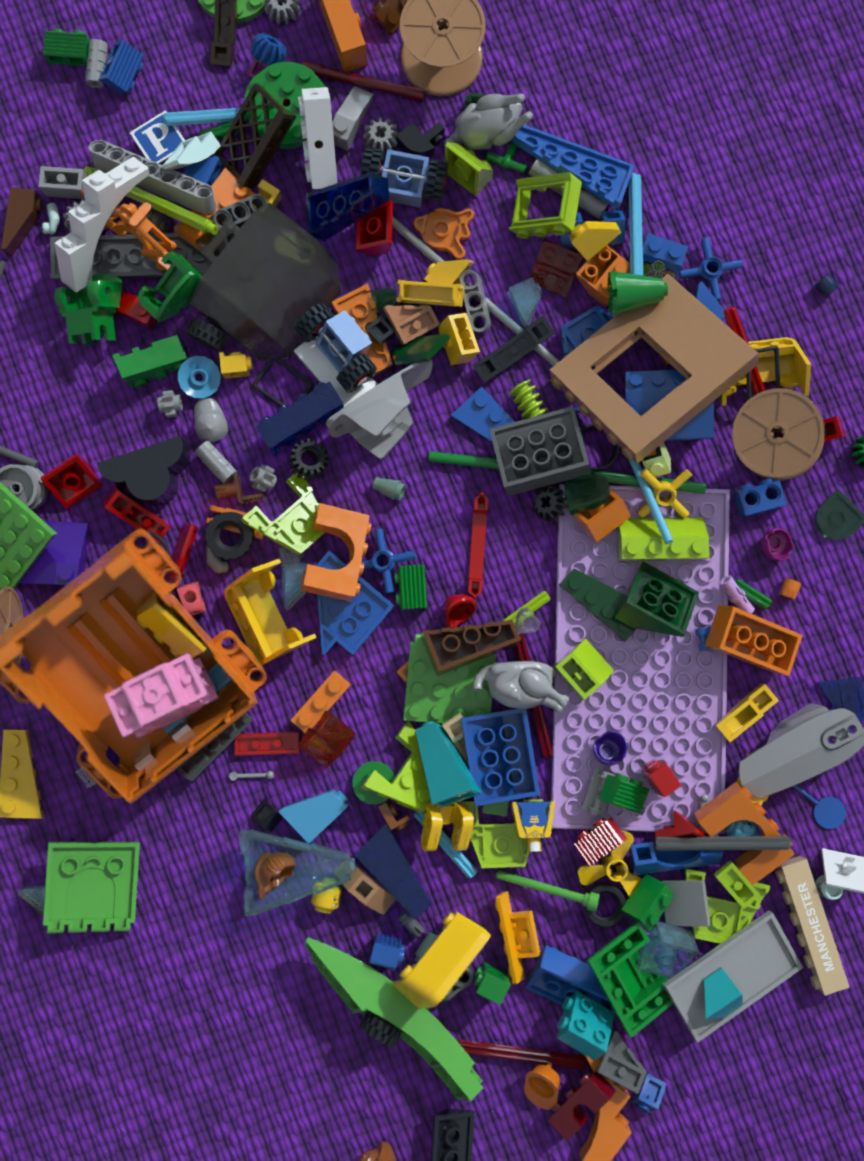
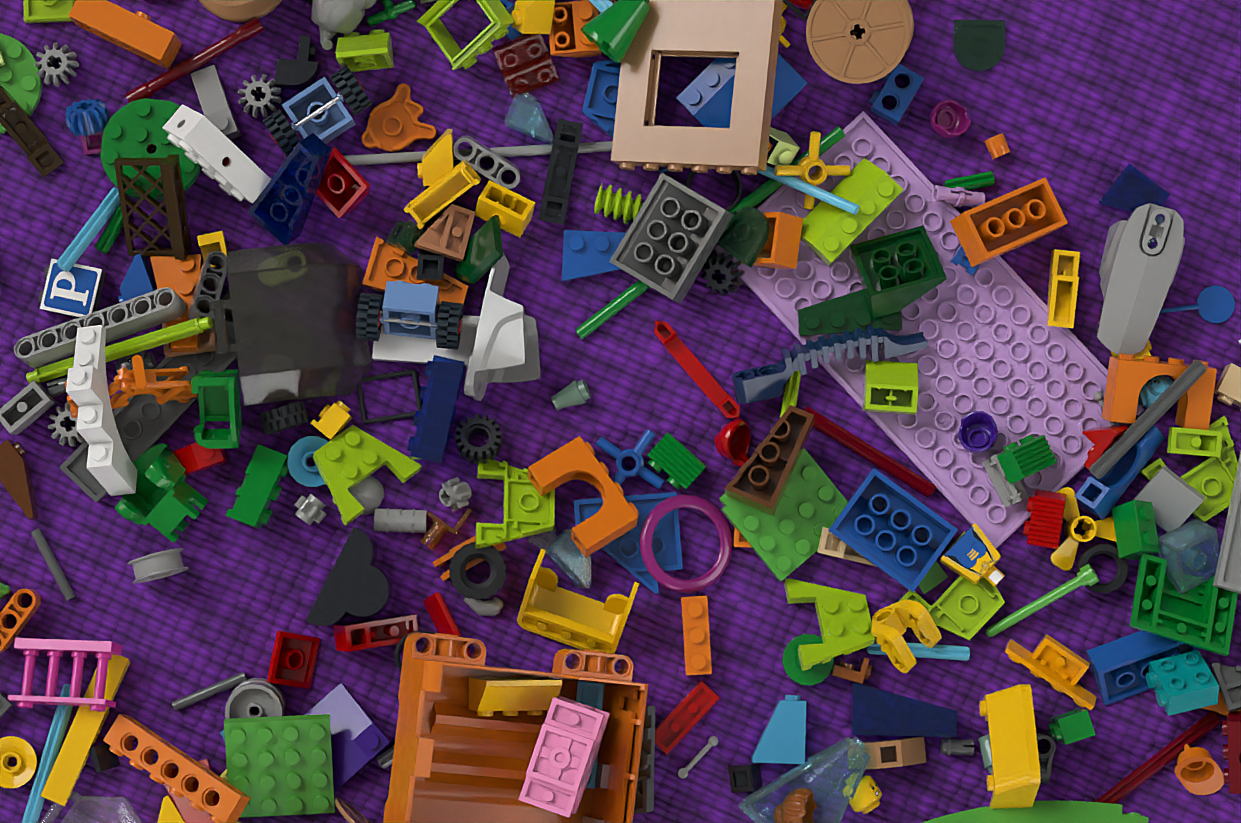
camera: 40 degrees left, 0 degrees up
(47, 348) = (157, 565): none -> light grey wheel
(54, 218) = (46, 450): light aqua arm -> none
(192, 151) = (114, 271): light aqua slope -> none
(192, 598) = (499, 656): coral leg -> none
(223, 398) = (353, 458): none -> lime wing
(327, 739) = (733, 661): clear red slope -> none
(346, 616) = (648, 557): none -> magenta wedge
(387, 951) = (959, 787): blue brick -> none
(444, 767) = (854, 585): teal slope -> none
(515, 593) = (768, 380): none -> dark blue piece
(521, 685) = (851, 452): light grey piece -> none
(526, 621) = (802, 394): clear tile -> none
(660, 778) = (1043, 415): red brick -> none

